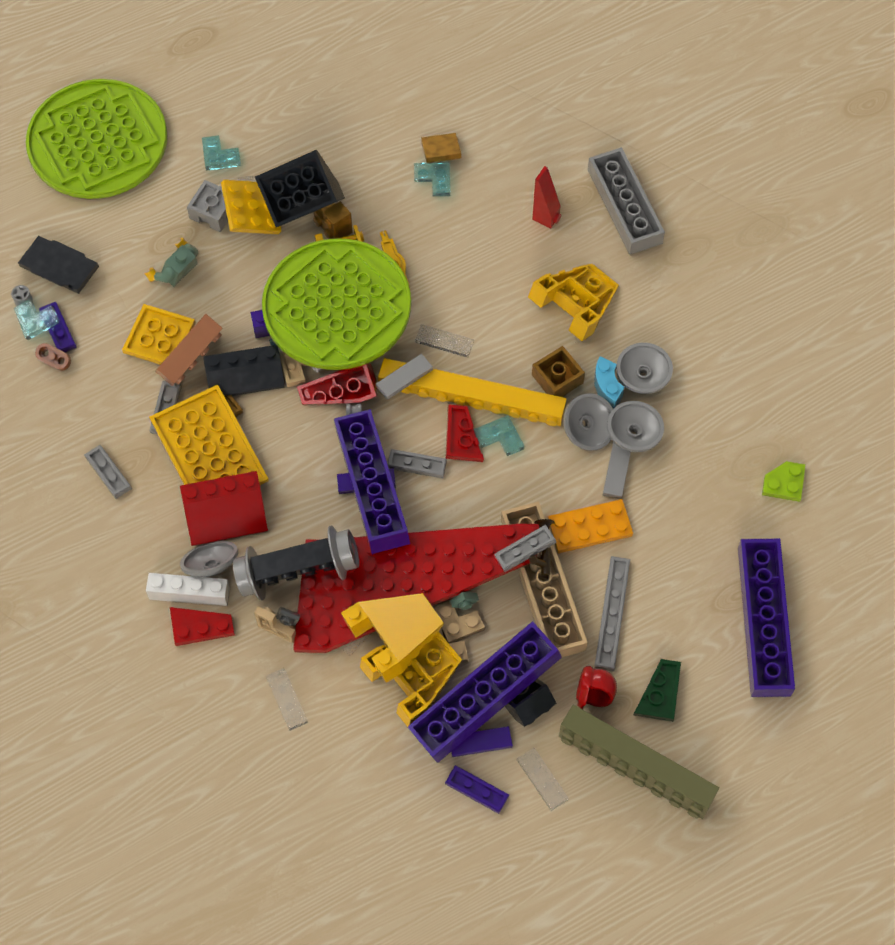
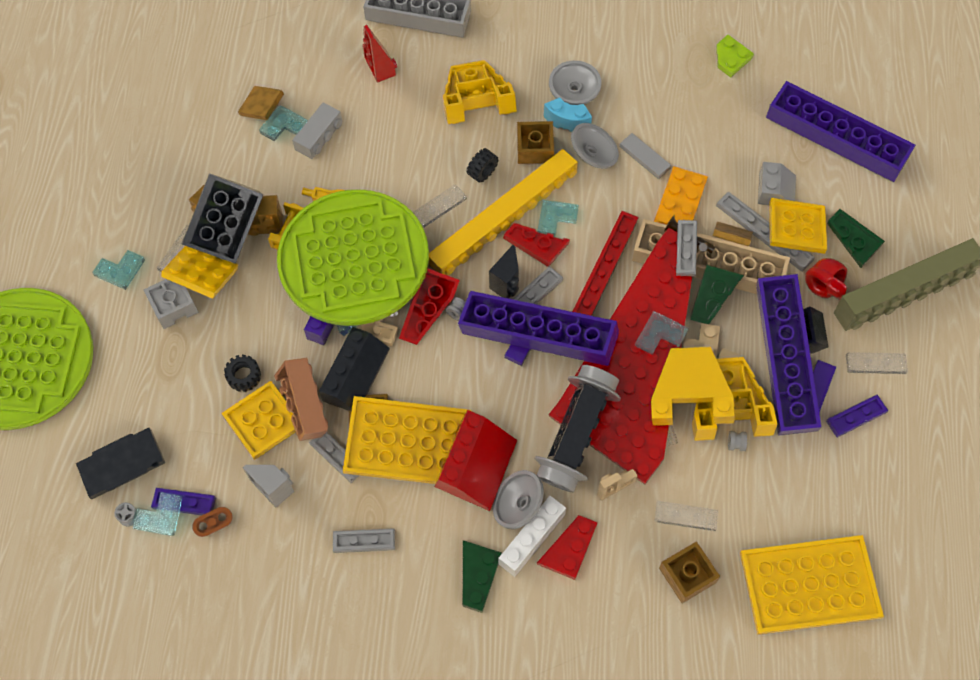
camera: 55 degrees left, 0 degrees up
(105, 374) = (271, 482): none -> light grey slope
(131, 570) = (478, 574): none -> dark green wing
(177, 265) = (207, 362): sand green torso -> none
(186, 287) = (235, 365): none -> black tyre
(232, 725) = (689, 572): none -> pearl gold brick
(287, 616) = (620, 465): dark grey slope -> none
(287, 831) = (810, 584): none -> yellow plate
(381, 700) = (737, 441): none -> light grey wheel
(404, 376) = (457, 249): light grey tile -> none
(410, 428) = (505, 274): none -> black slope
(431, 571) = (660, 328): none -> clear light blue plate
(446, 205) = (317, 130): none -> light grey brick
(464, 600) = (691, 324): sand green plate -> none
(472, 502) = (606, 264): none -> red plate
(503, 346) = (482, 165): none -> black tyre
(508, 599) = (712, 293): none -> dark green wing
(583, 584) = (732, 234): none -> pearl gold tile
(634, 635) = (797, 225): none -> yellow plate
(637, 418) = (621, 118): light grey dish -> none
(666, 596) = (775, 182): none -> light grey slope

